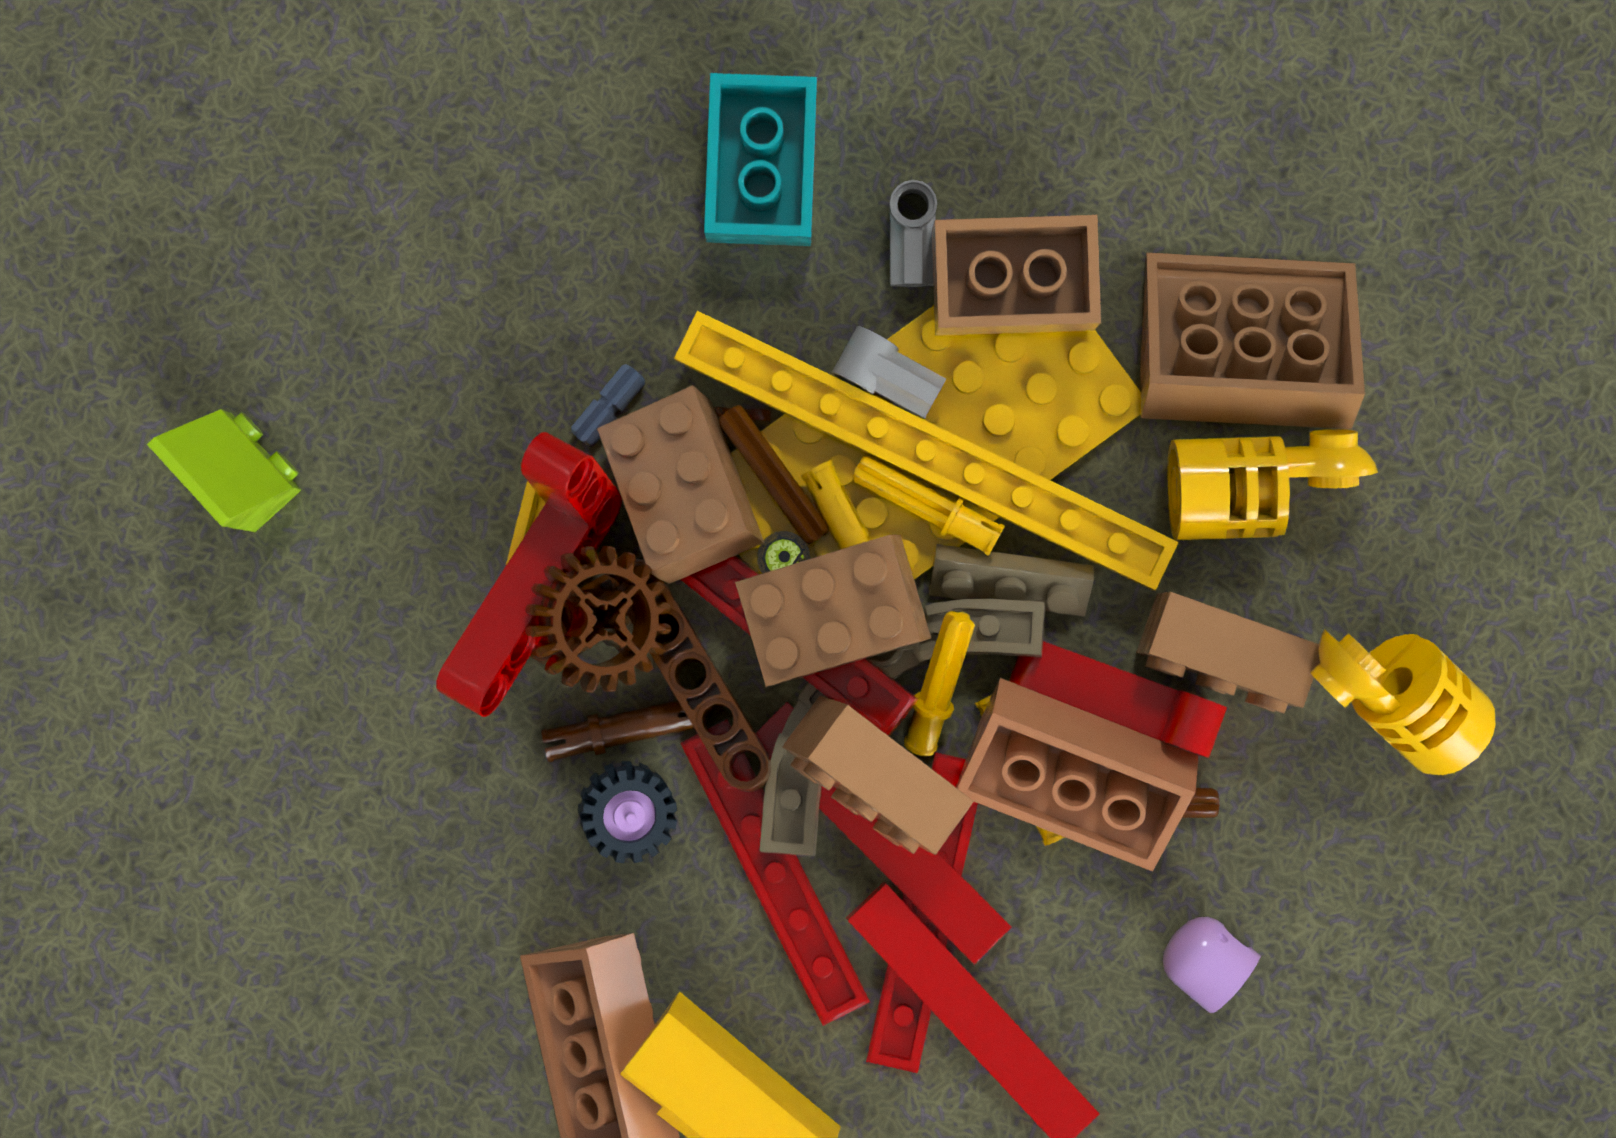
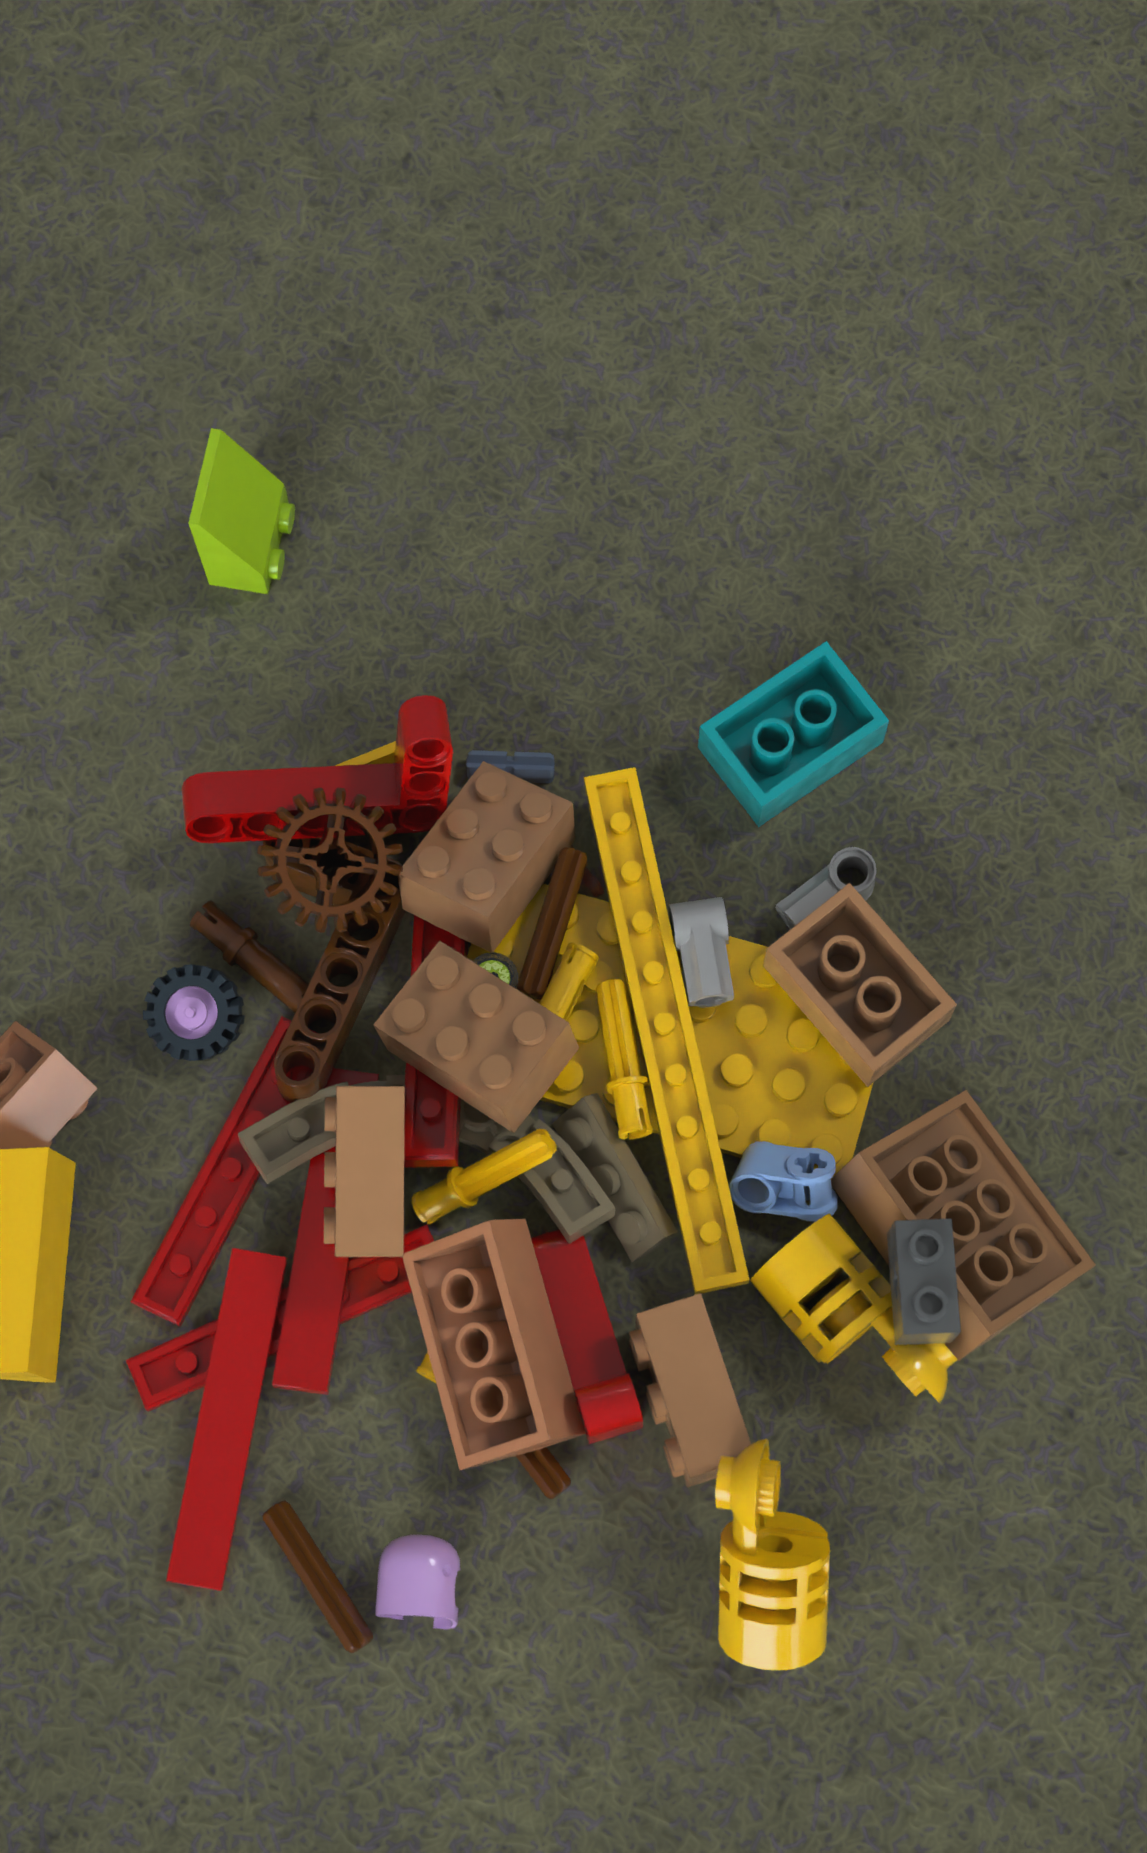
camera: 55 degrees right, 15 degrees down
(1114, 455) = (783, 1179): none -> light blue piece
(1142, 1032) = (318, 1576): none -> reddish brown axle
(1295, 416) = (923, 1281): none -> dark grey brick

